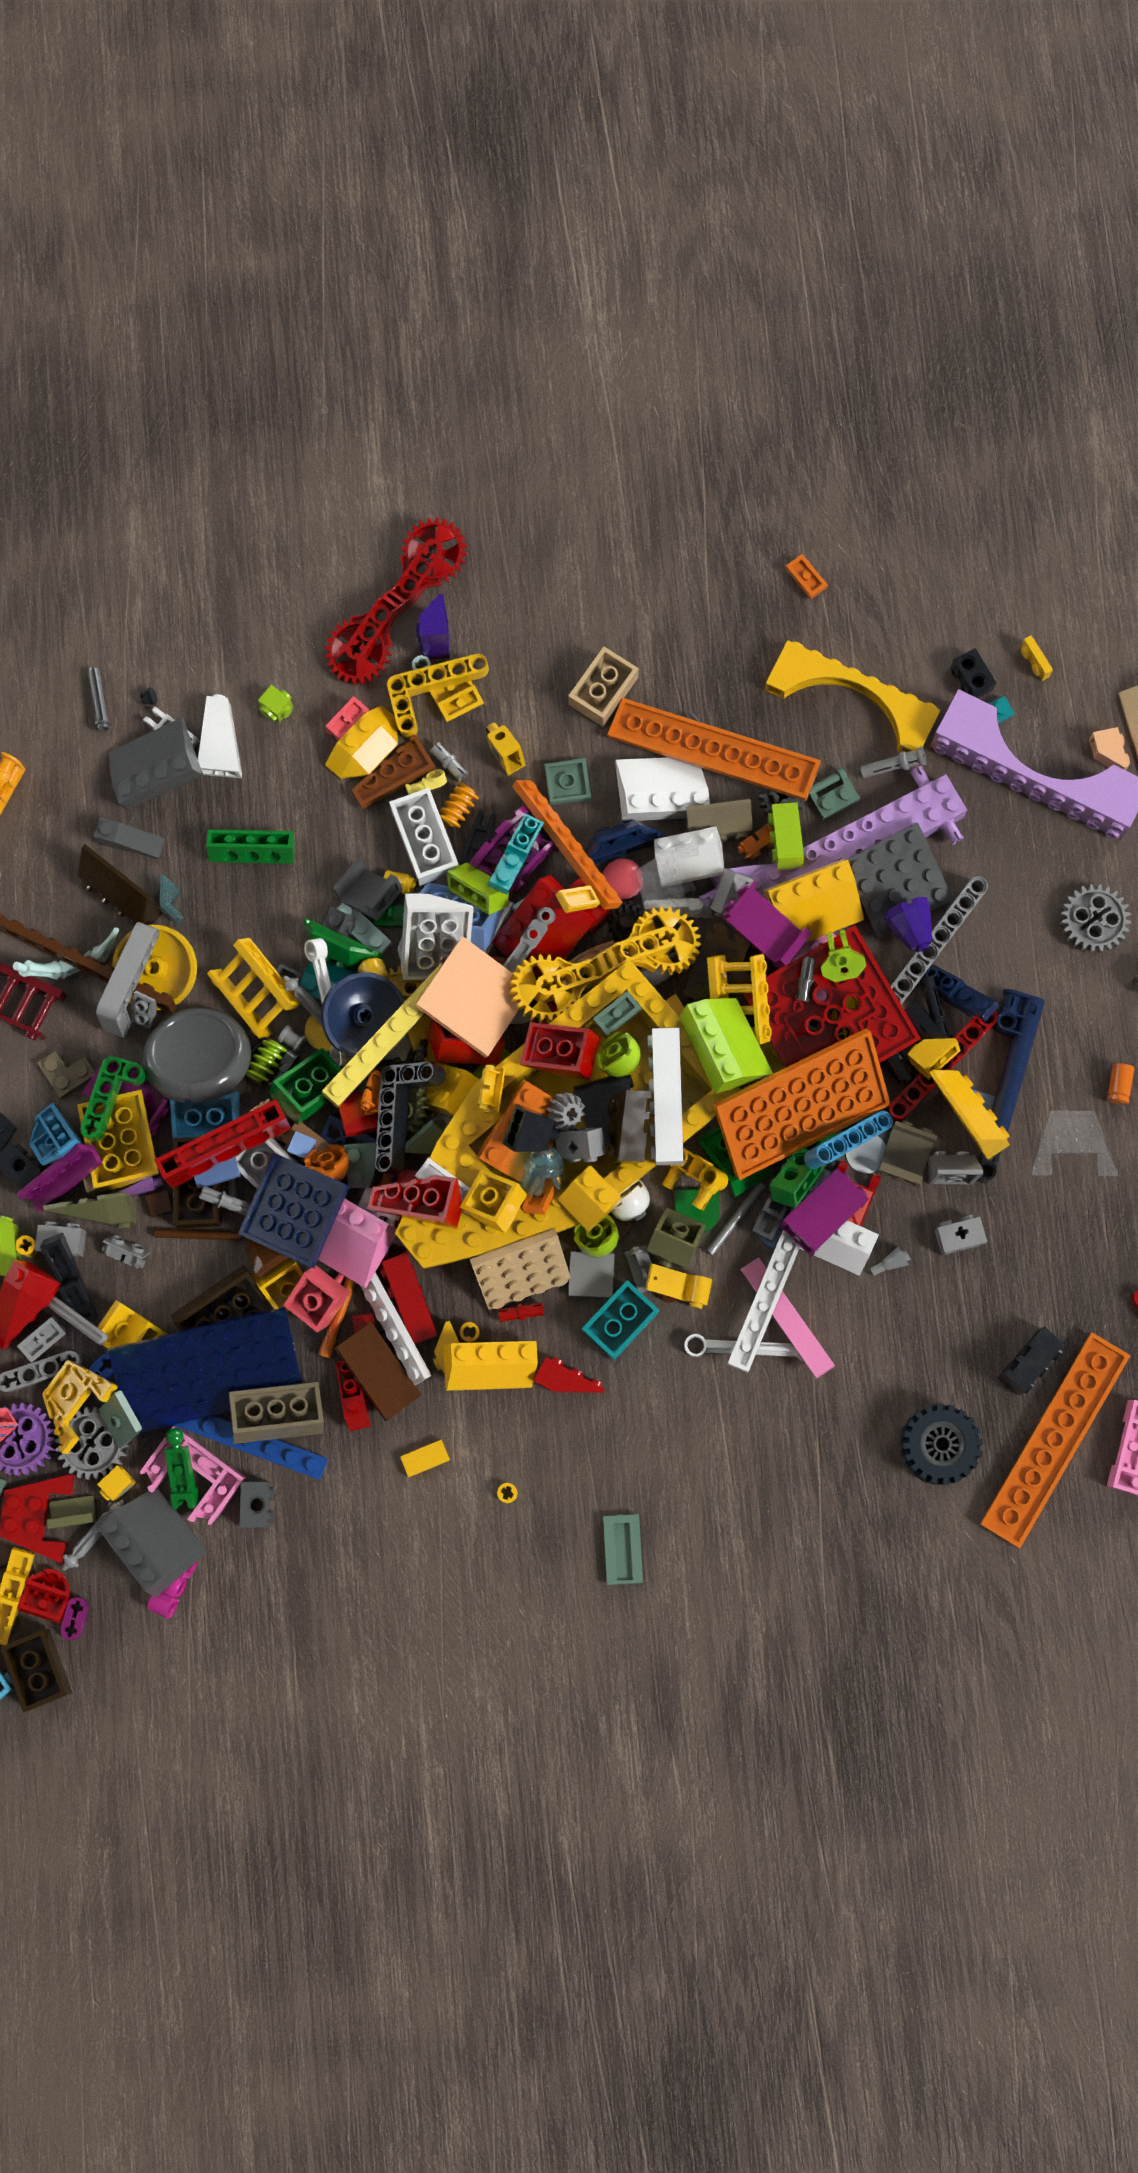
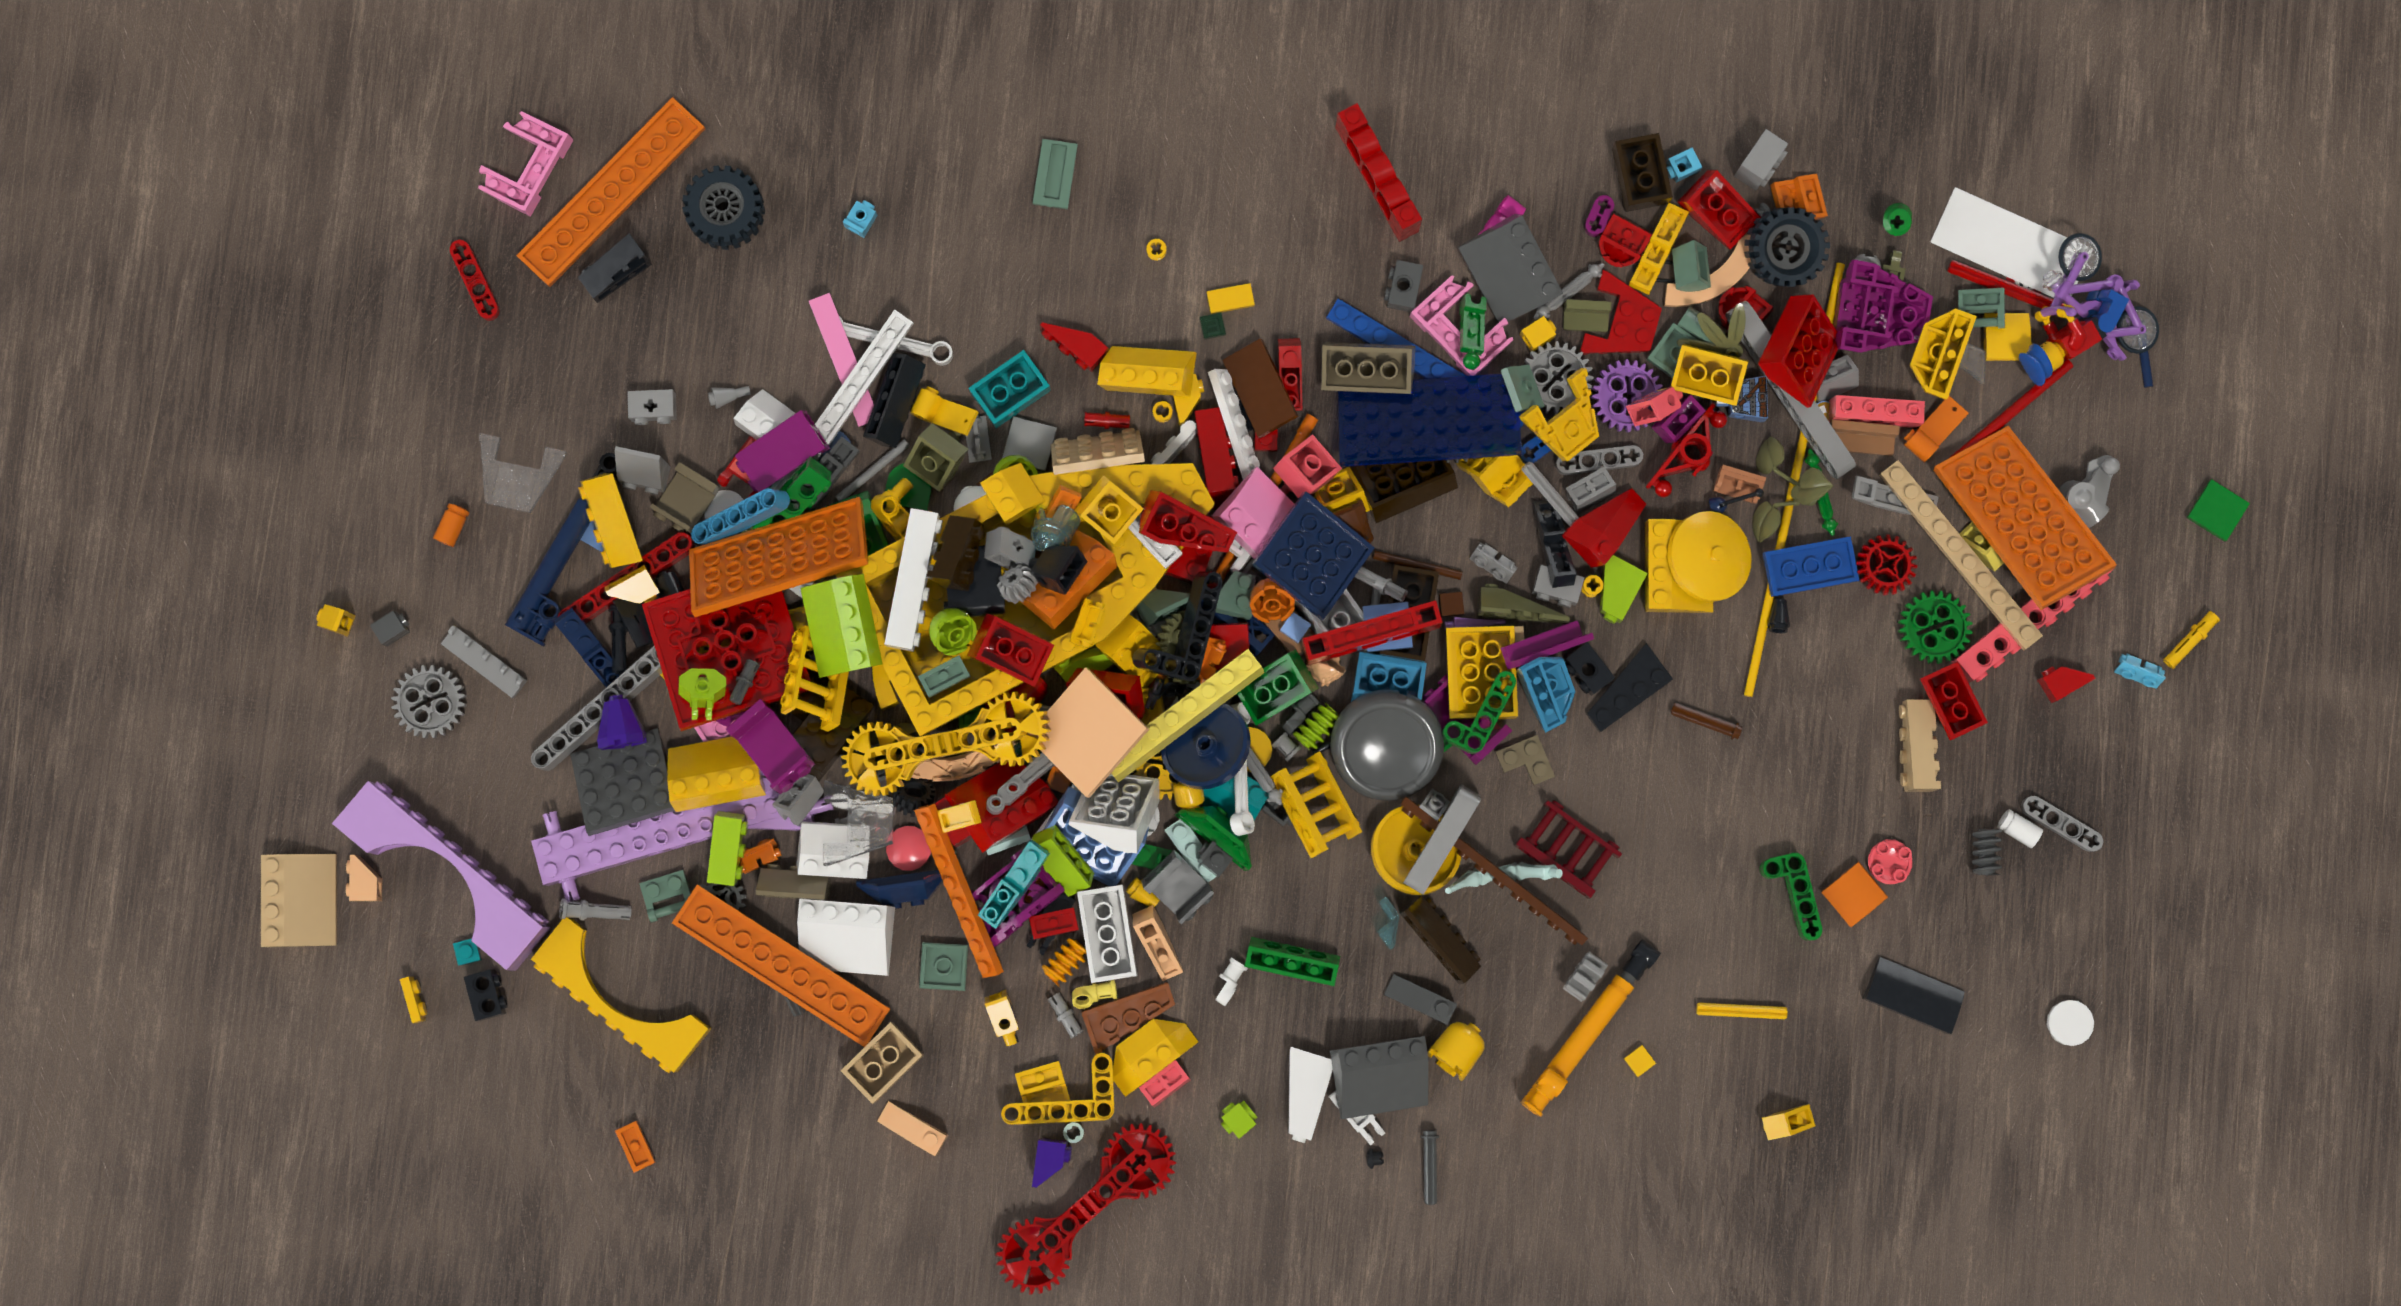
camera: 175 degrees left, 5 degrees up
(87, 800) = (1458, 1049): none -> yellow cylinder
(299, 1612) = (1378, 172): none -> red fence
(306, 823) = (1230, 975): none -> white connector
(379, 840) = (1156, 942): none -> light nougat slope
(437, 1427) = (1212, 326): none -> clear green tile
(451, 1300) = (1176, 444): none -> white hinge
(474, 834) = (1053, 923): none -> red plate
(563, 638) = (912, 1128): none -> light nougat slope
(729, 1287) = (894, 400): none -> black brick
(804, 1454) = (857, 225): none -> medium azure brick
(1055, 966) = (483, 662): none -> light grey hinge

